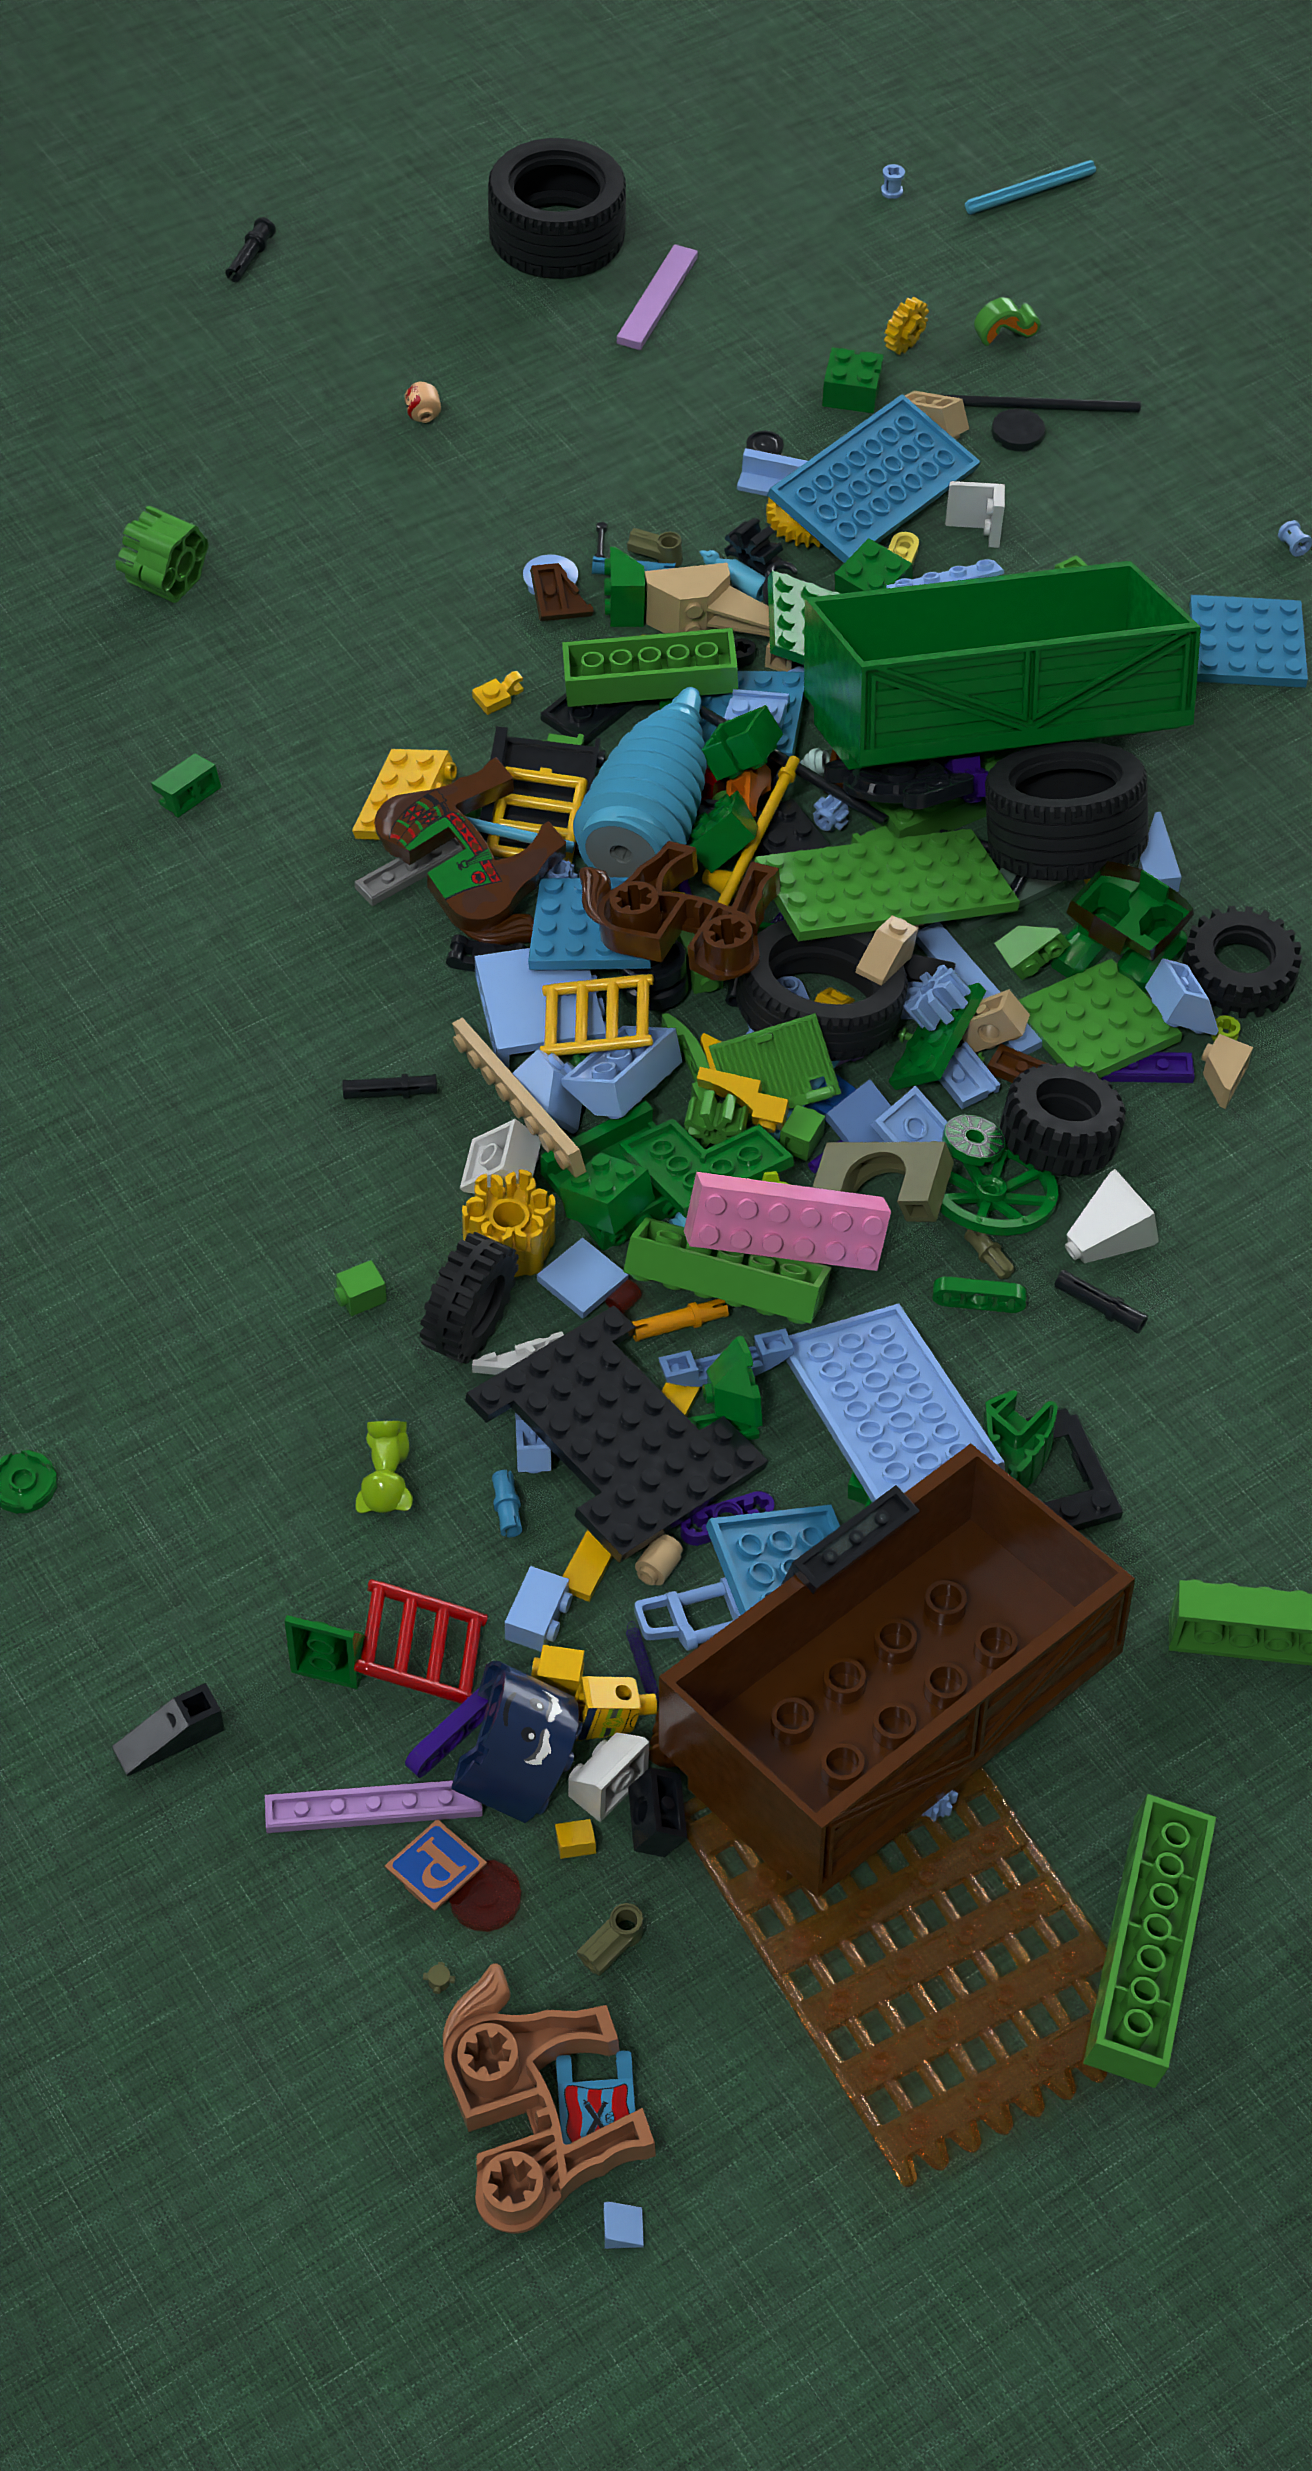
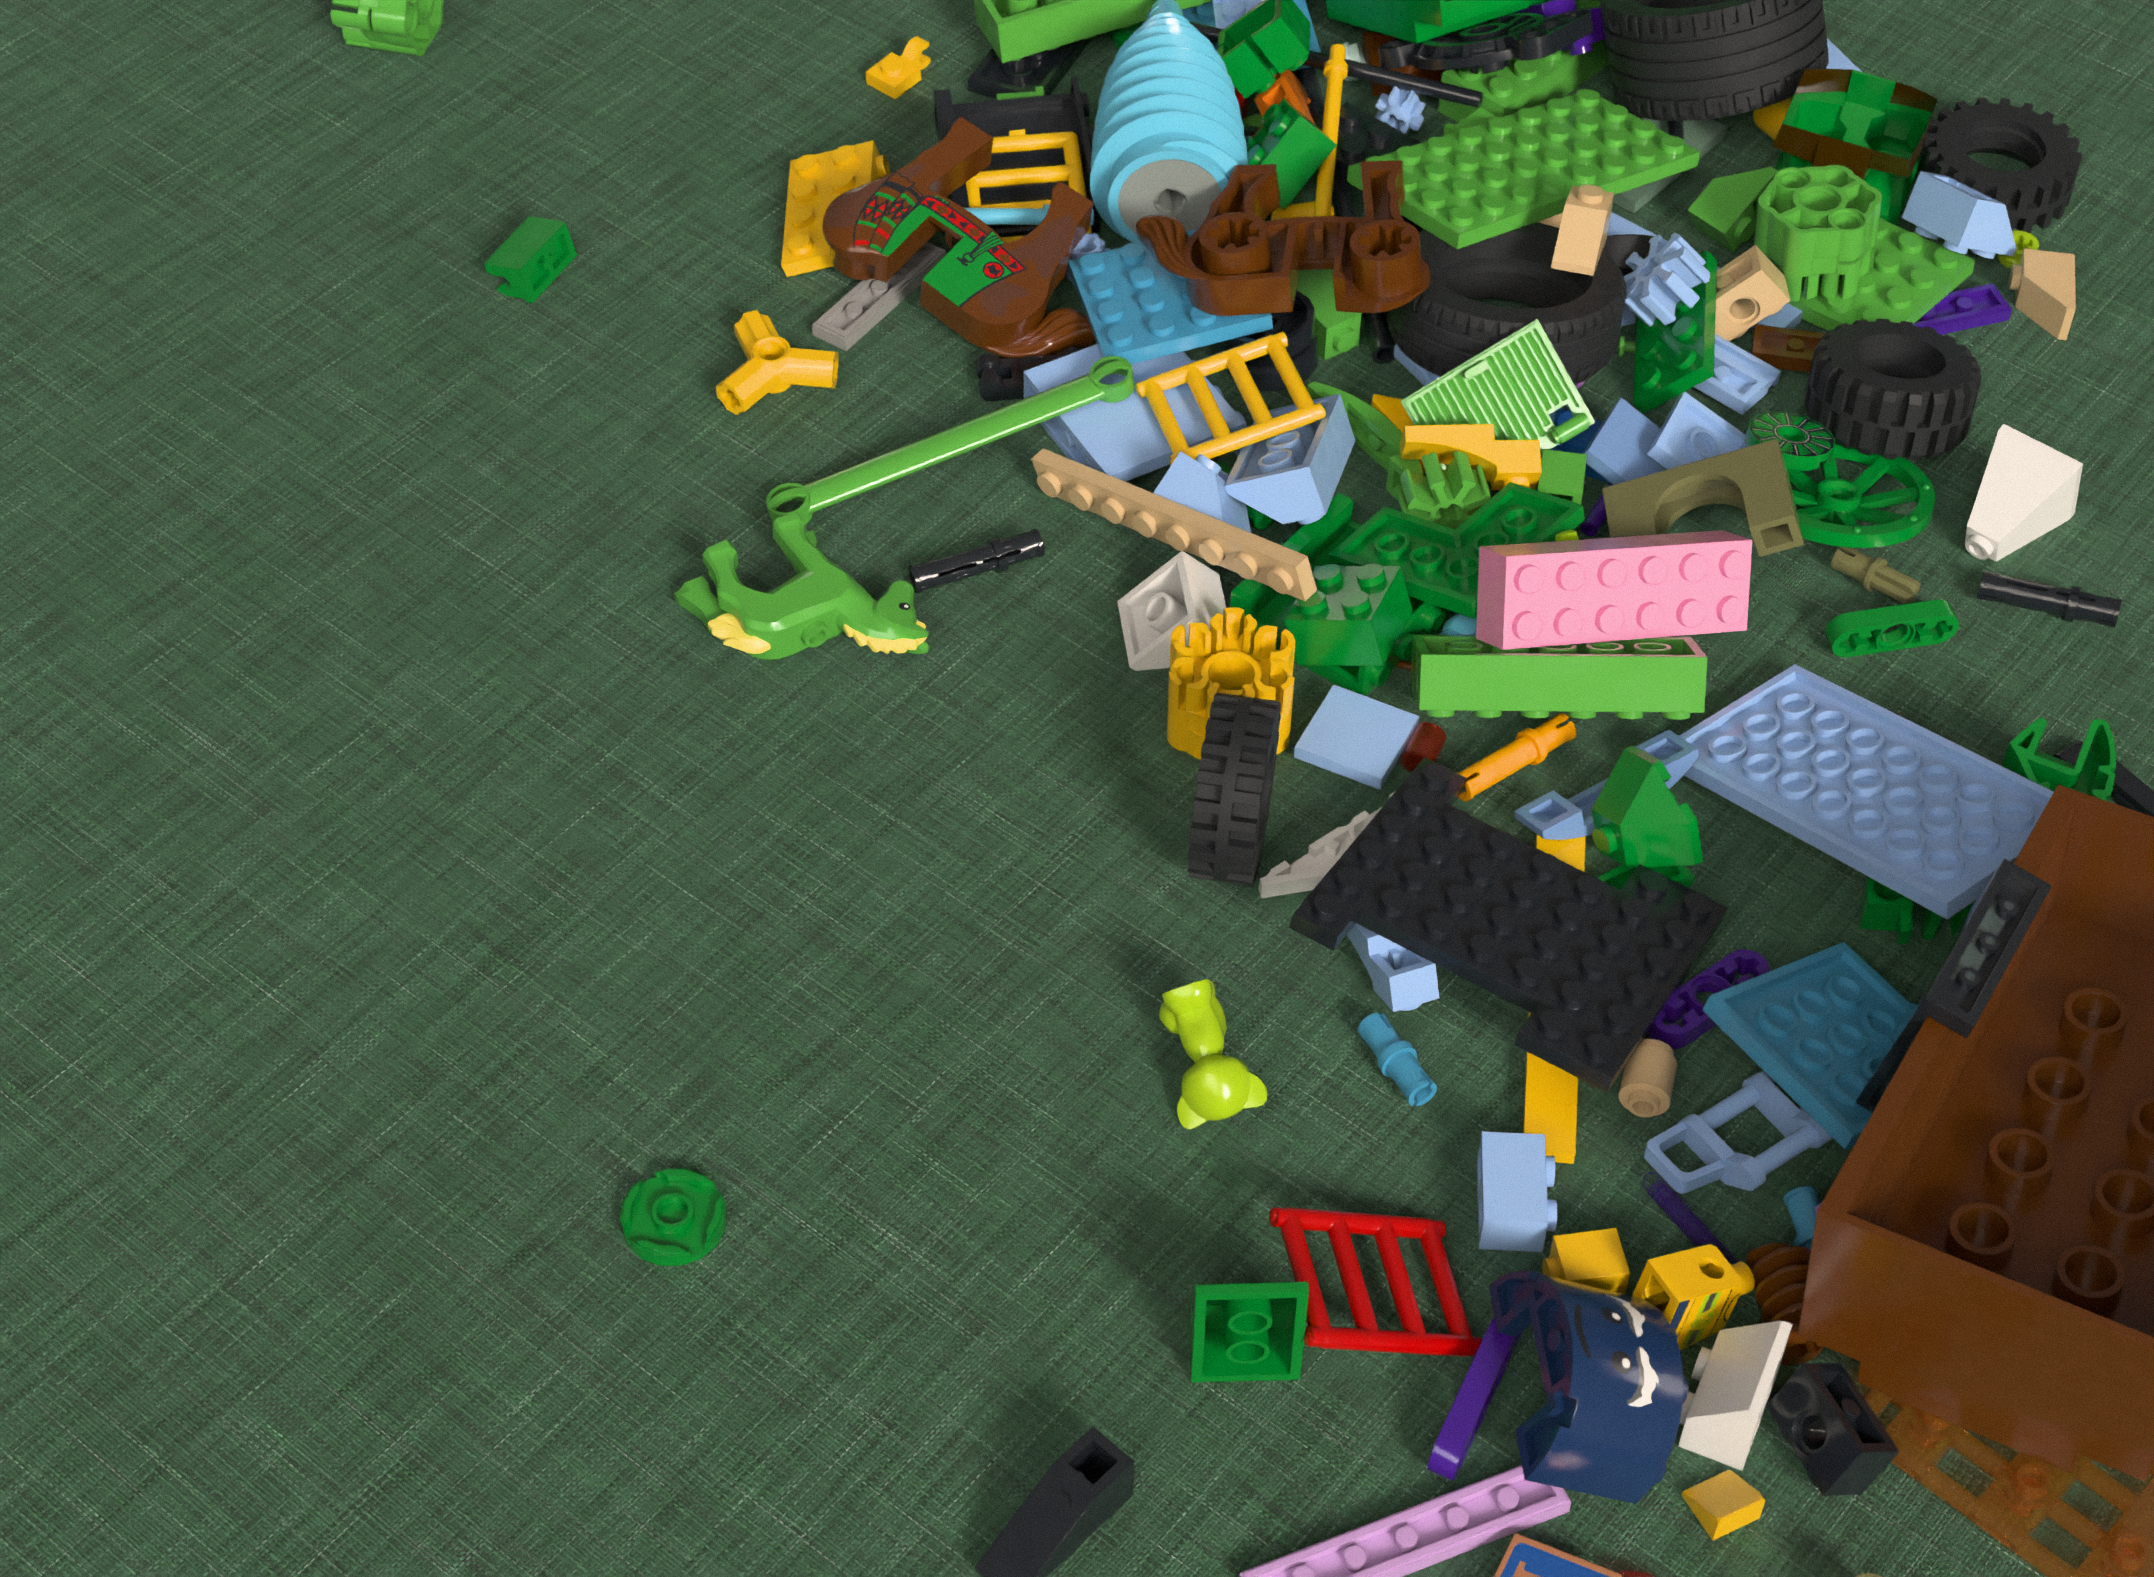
camera: 15 degrees left, 5 degrees down
(262, 1093) = (805, 609): none -> bright green animal
(314, 907) = (772, 365): none -> yellow piece
(360, 1288) = (1057, 825): bright green brick -> none
(406, 997) = (955, 440): none -> bright green piece
(1065, 984) = (1817, 225): none -> bright green piece

